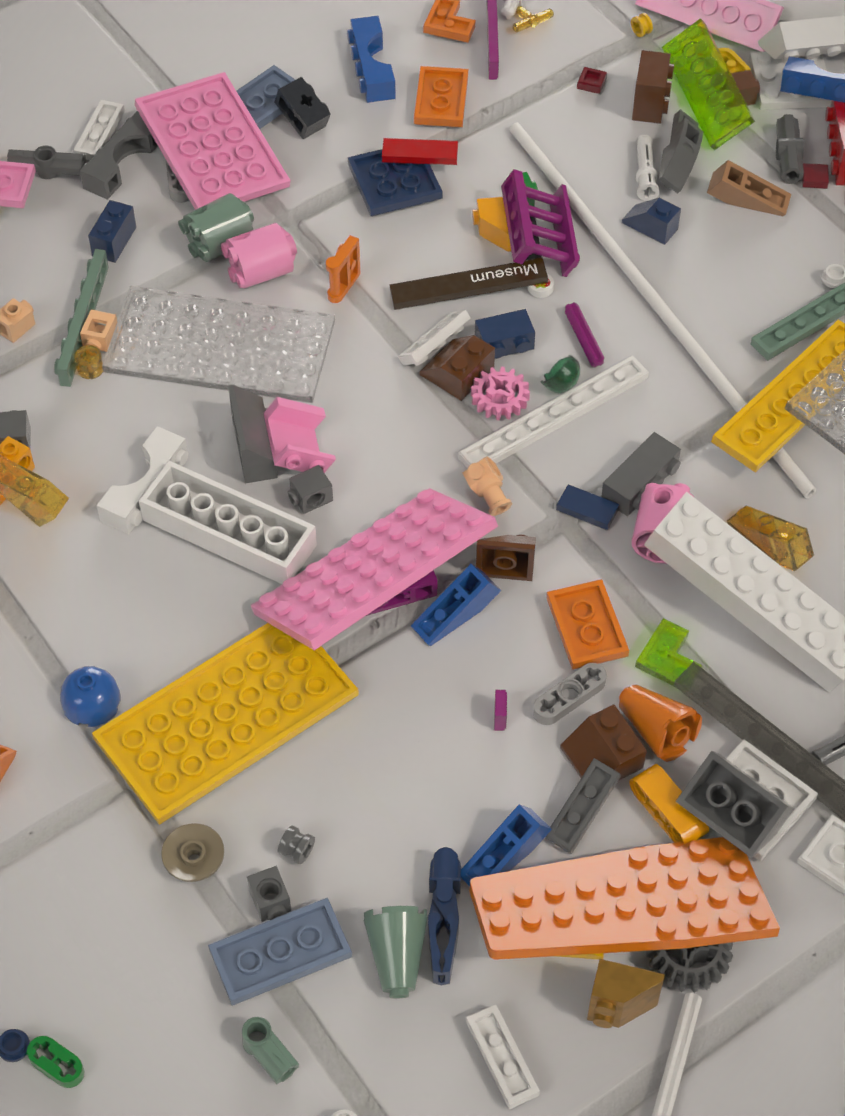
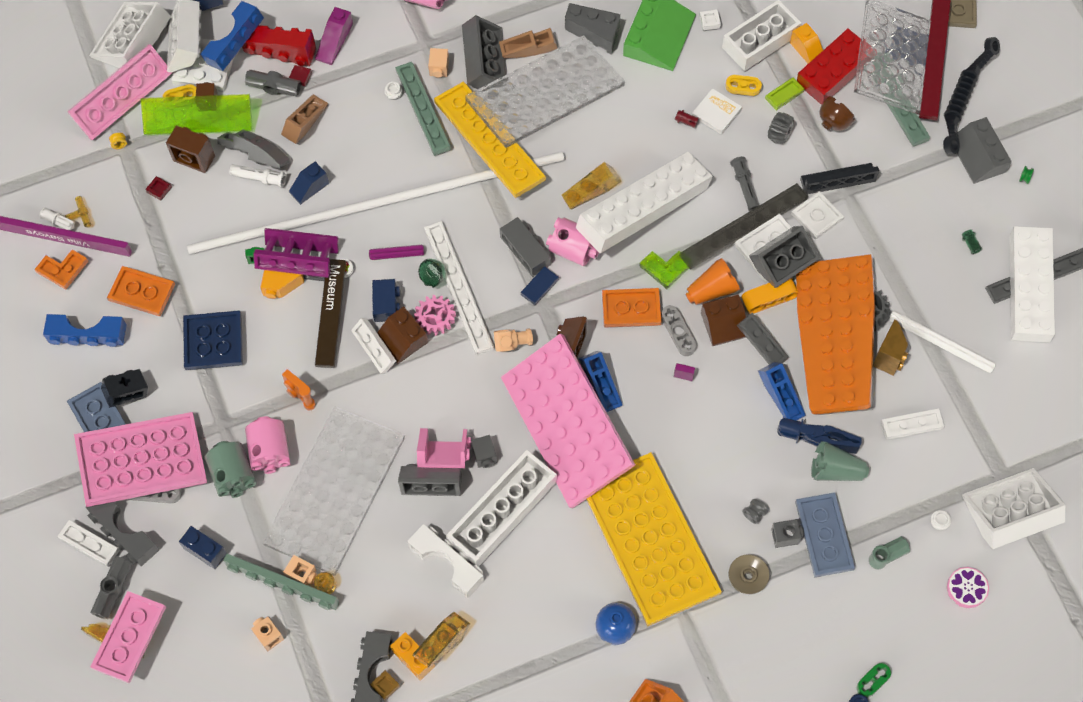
camera: 75 degrees left, 10 degrees up
(420, 151) = (198, 315): red tile -> none

